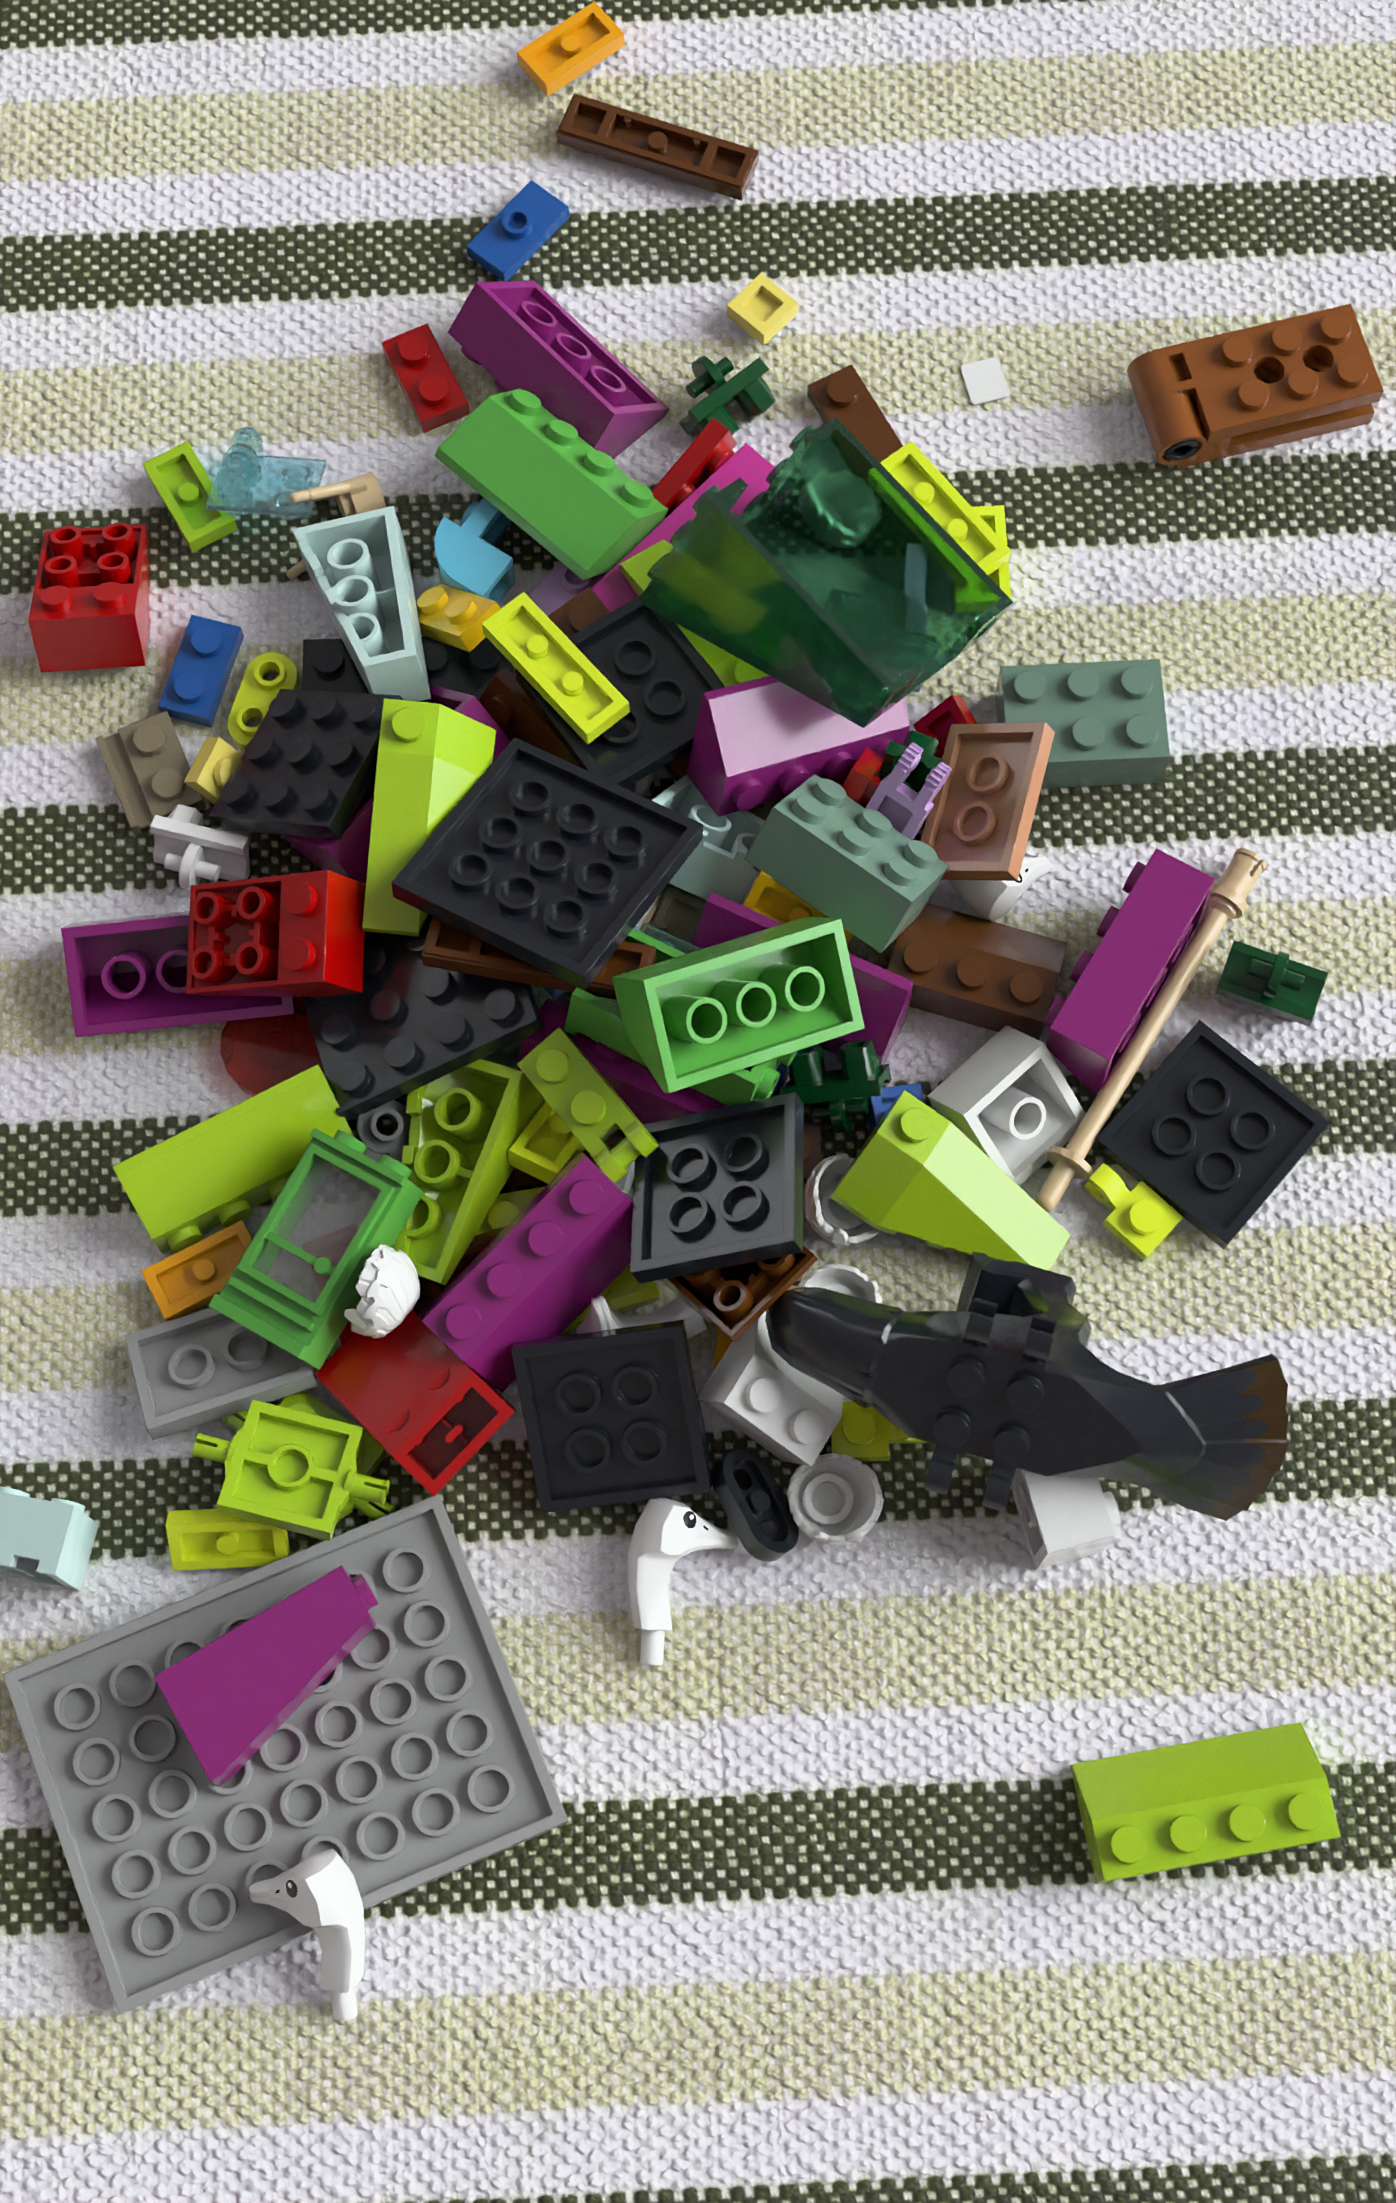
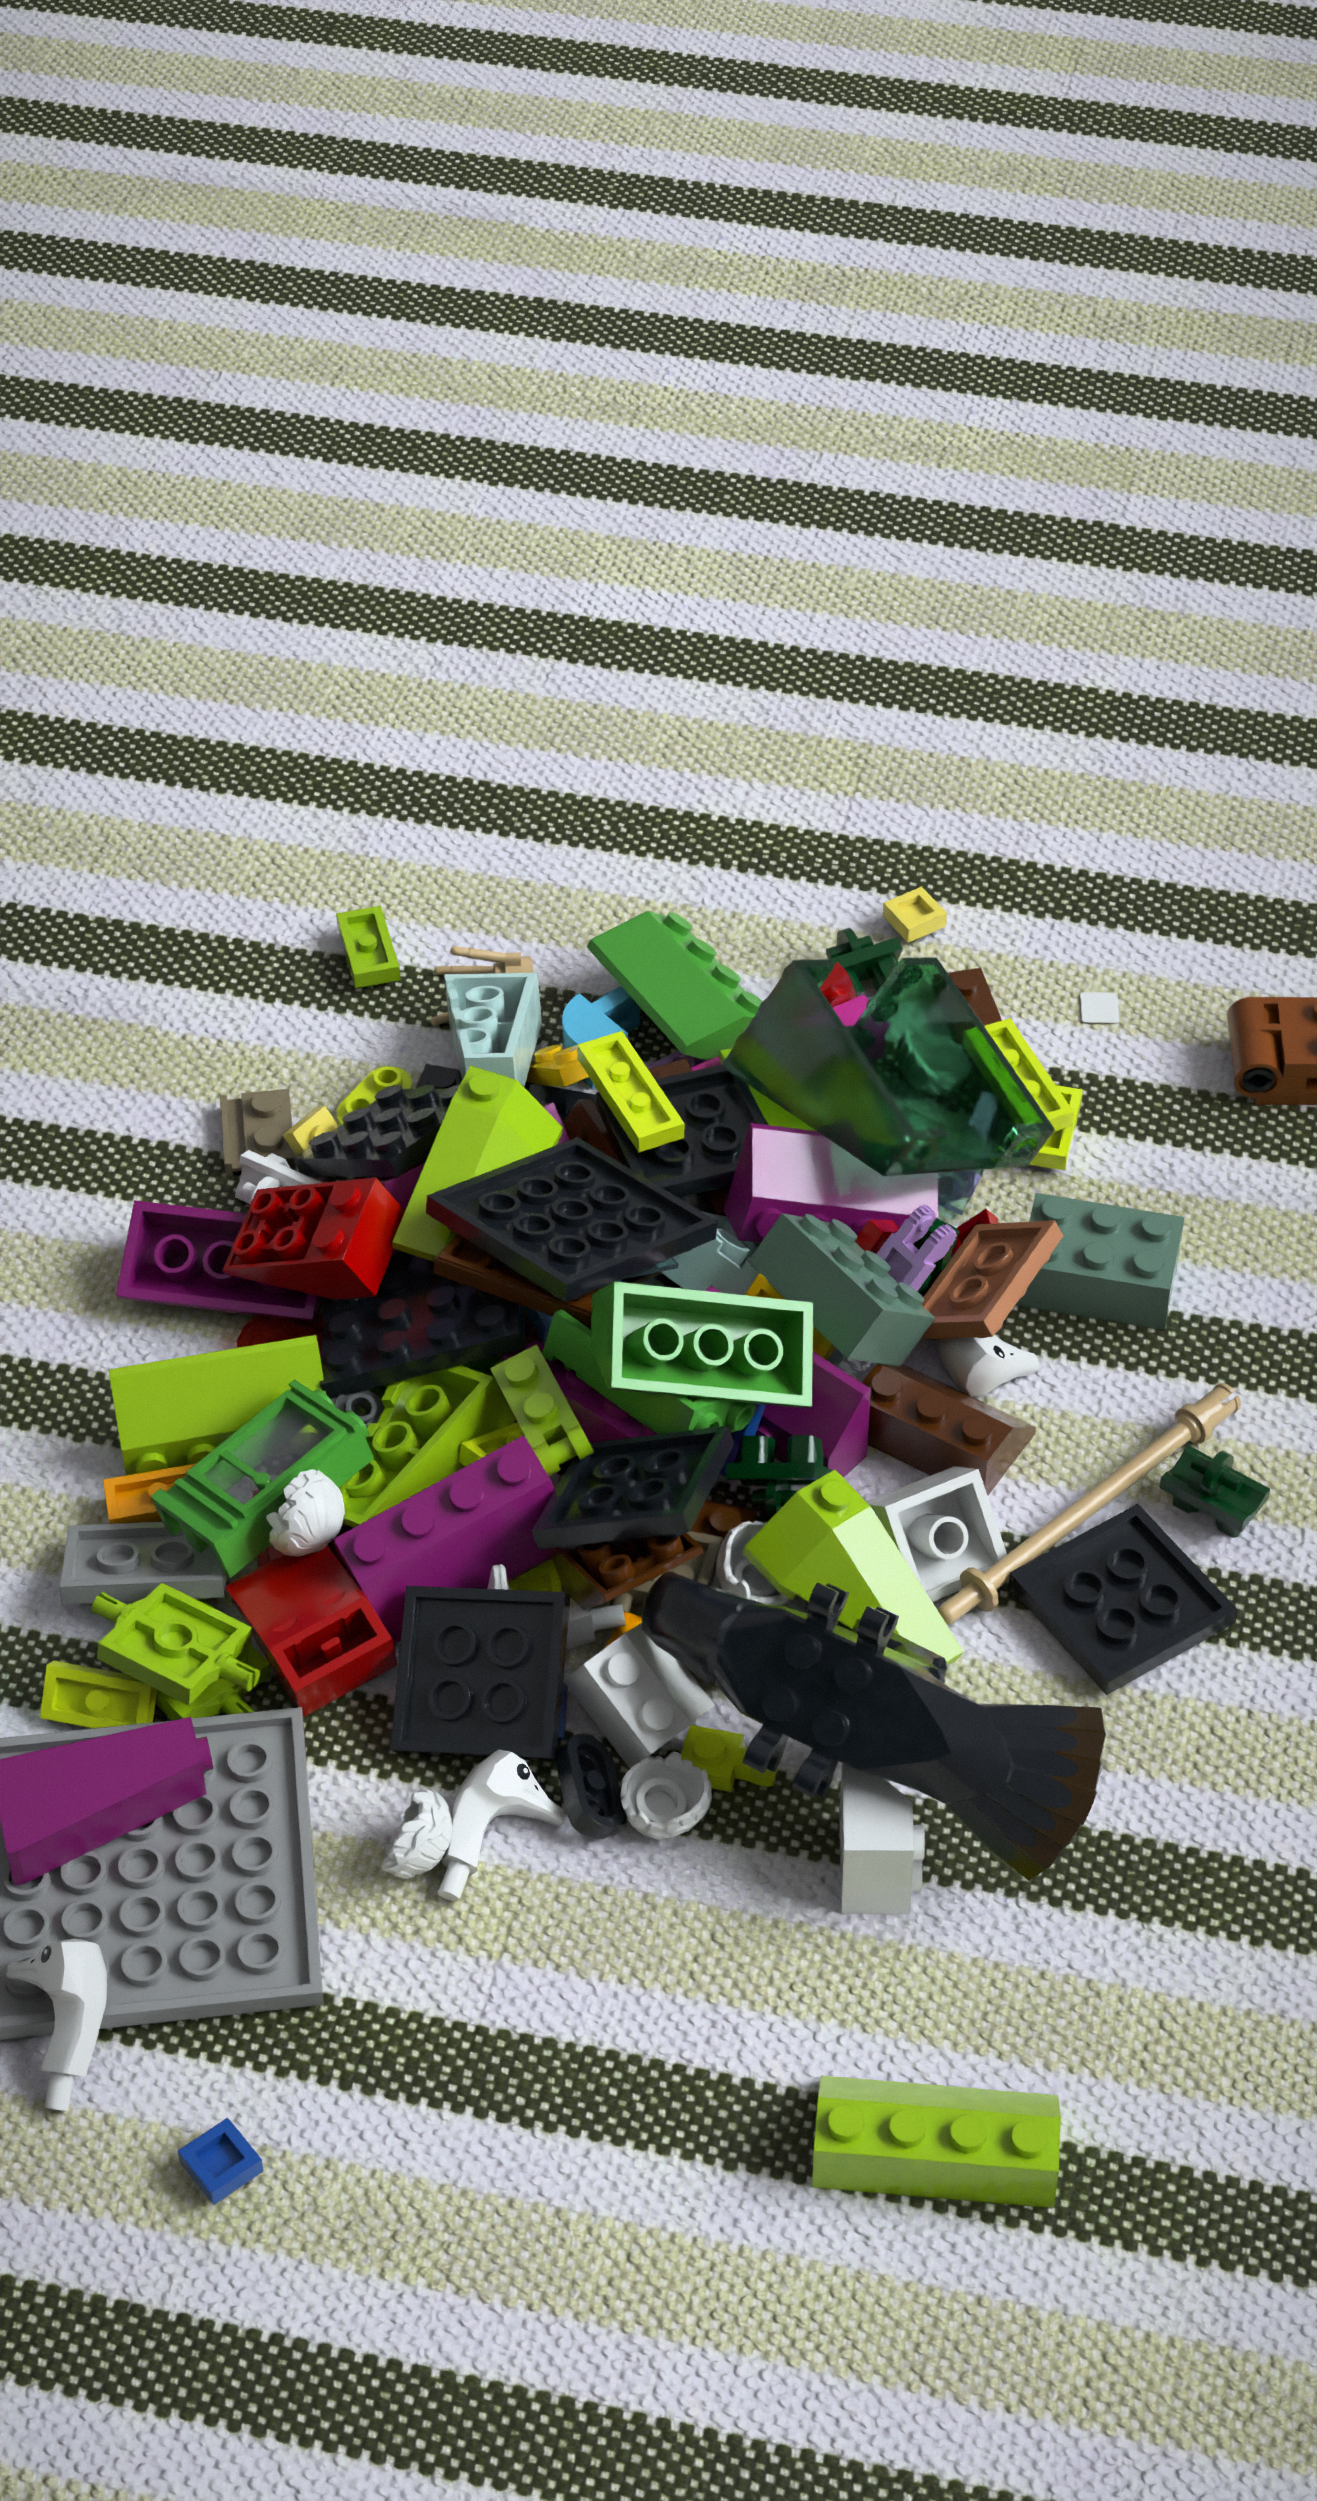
camera: 15 degrees right, 25 degrees down
(91, 598) = (255, 999): red slope -> none
(201, 670) = (330, 1070): blue plate -> none
(262, 482) = (421, 937): clear light blue hinge -> none
(425, 378) = (600, 901): red plate -> none
(518, 231) = (721, 824): blue plate -> none
(528, 2032) = (220, 2161): none -> blue plate
(542, 349) = (718, 908): magenta slope -> none
(570, 48) = (811, 709): light orange plate -> none
(608, 1617) = (421, 1837): none -> white hair
(657, 146) = (863, 788): reddish brown plate -> none
(1128, 966) = (1078, 1437): magenta slope -> none
(1138, 1216) = (1029, 1650): neon yellow plate -> none

